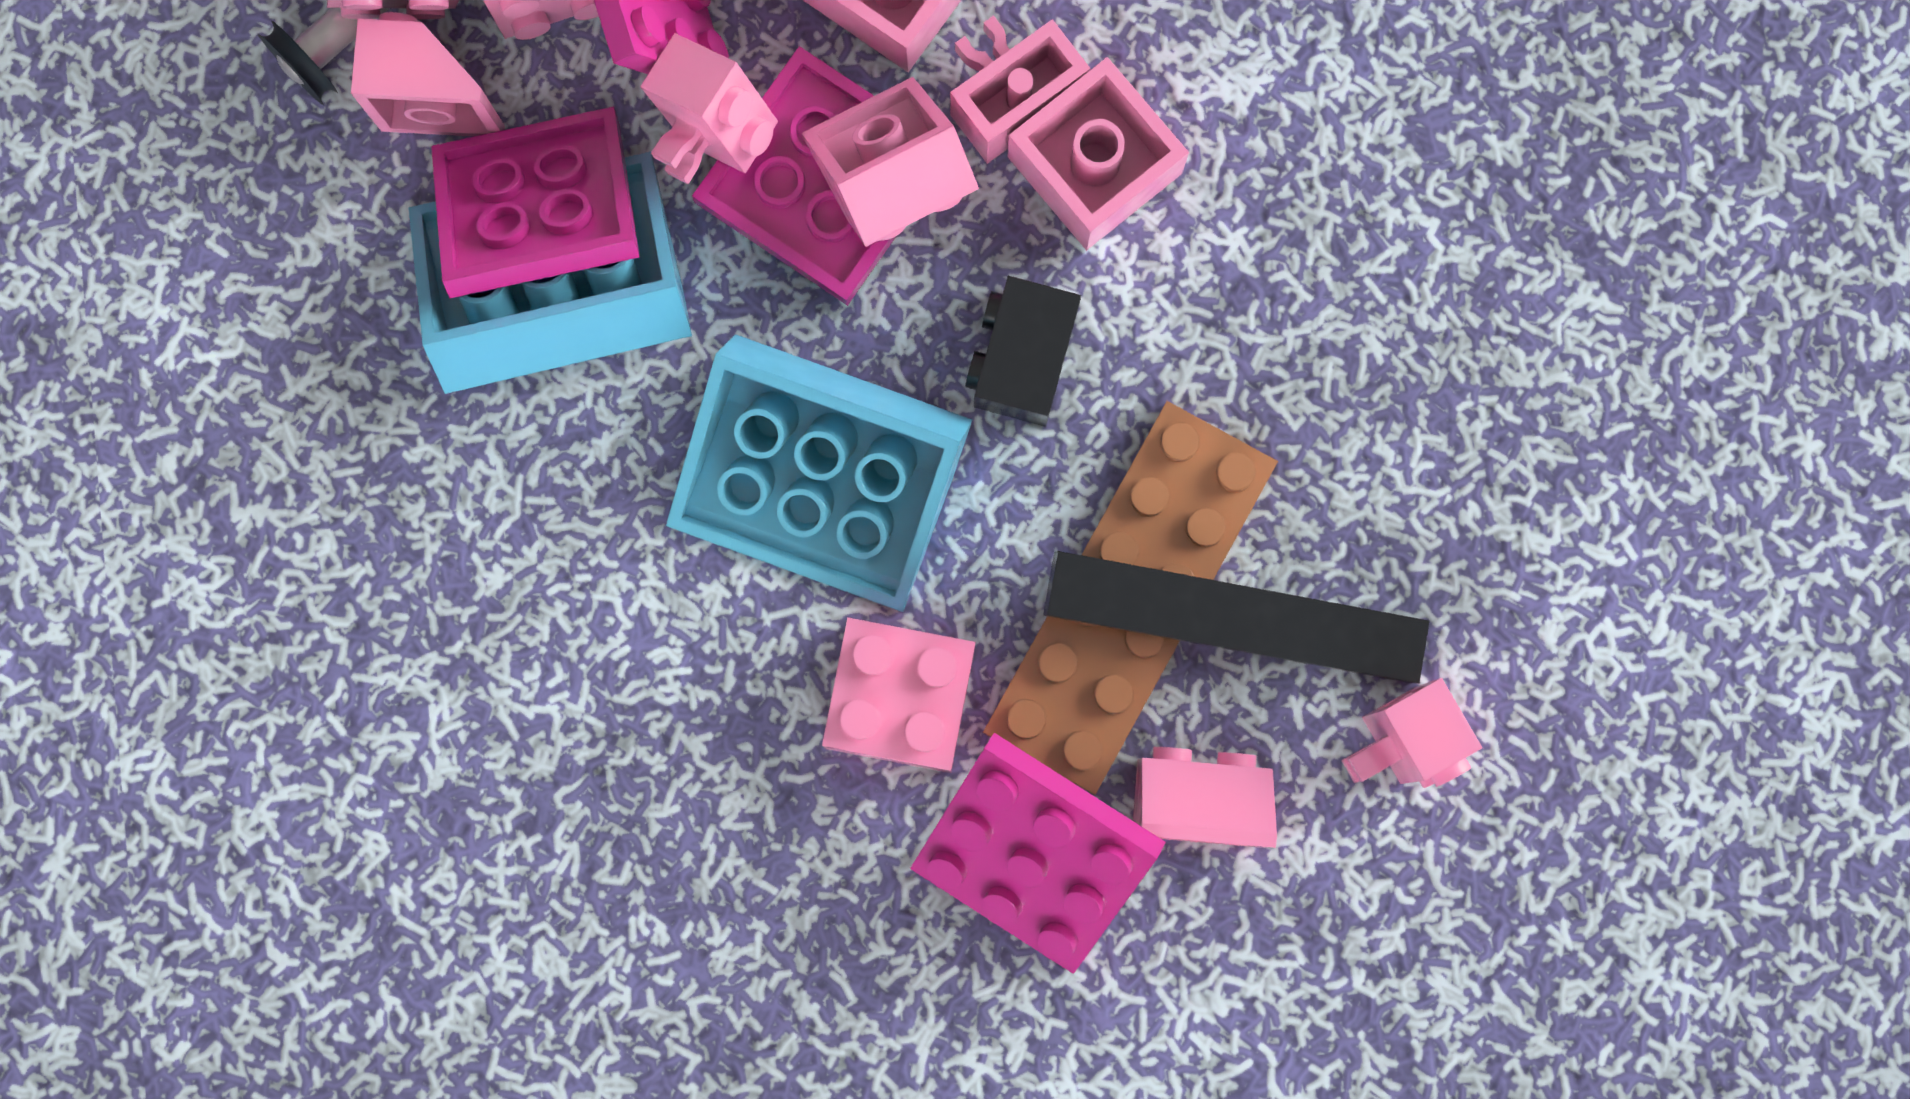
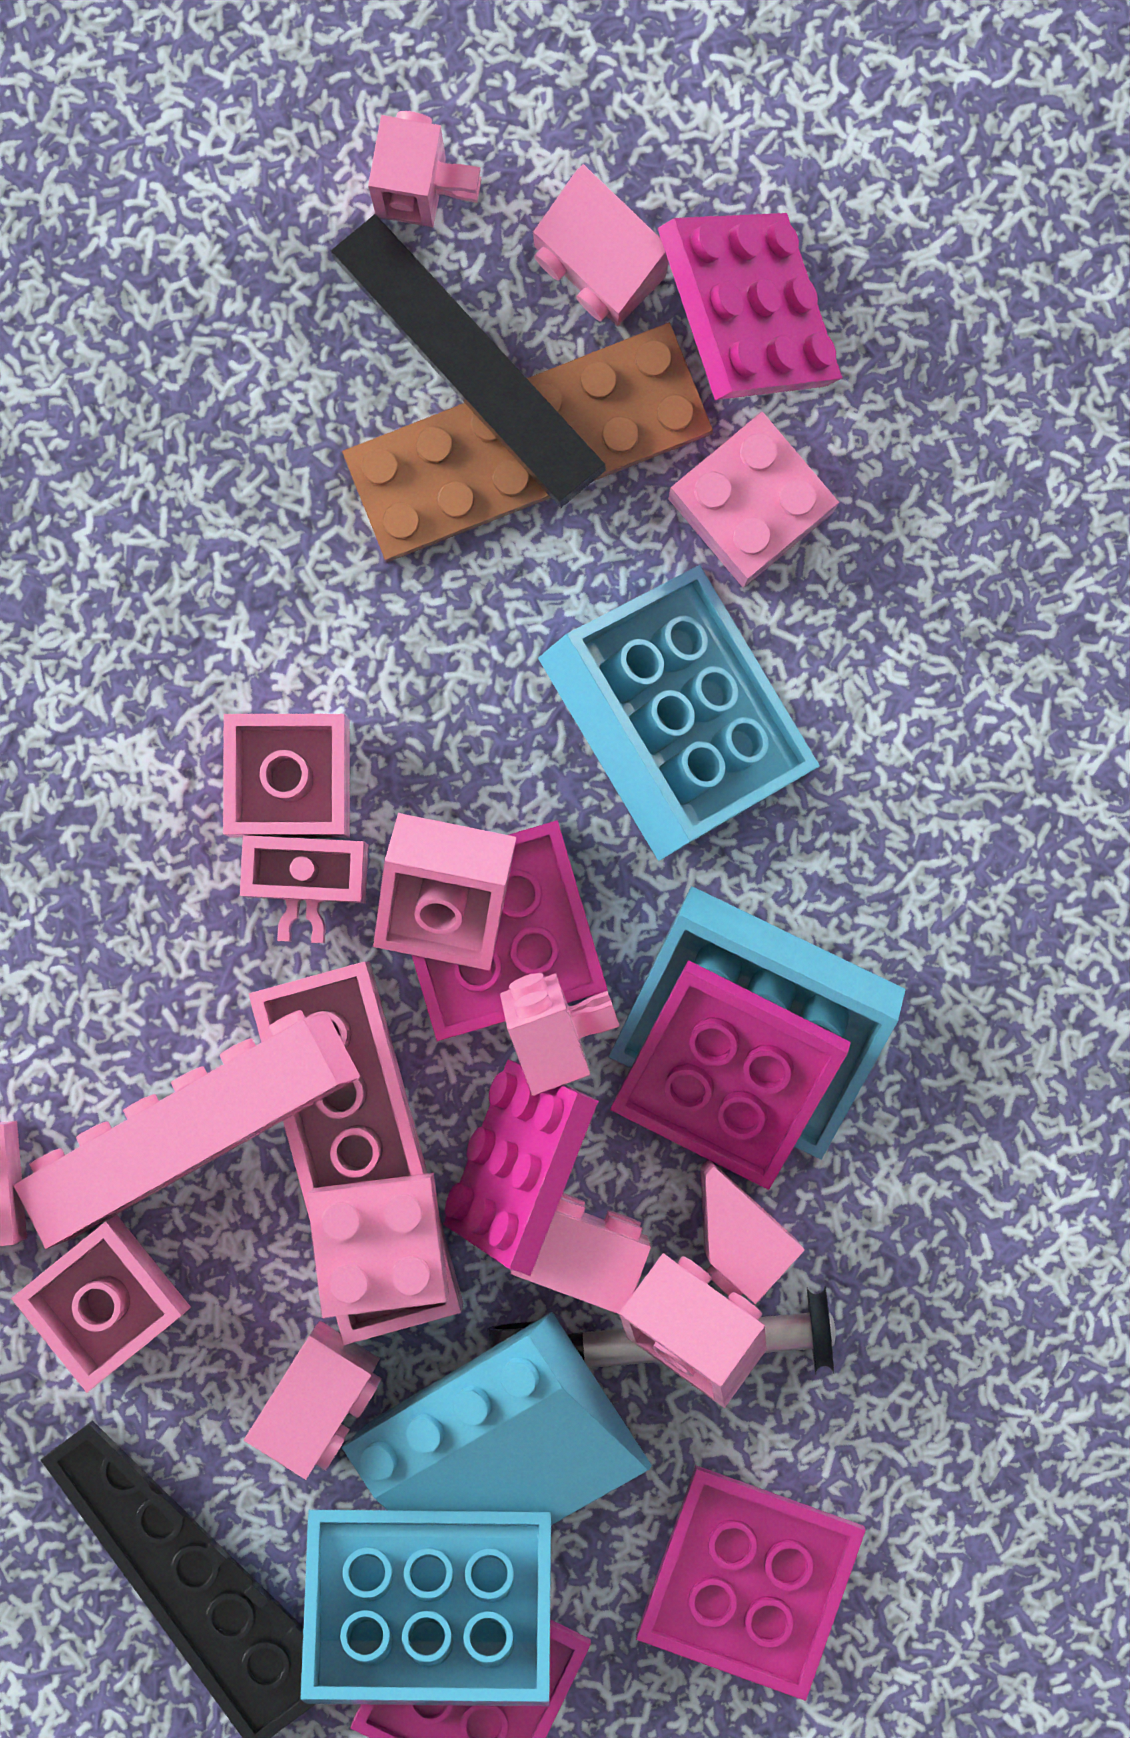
camera: 140 degrees left, 5 degrees up
(1025, 350) = (459, 677): black brick -> none

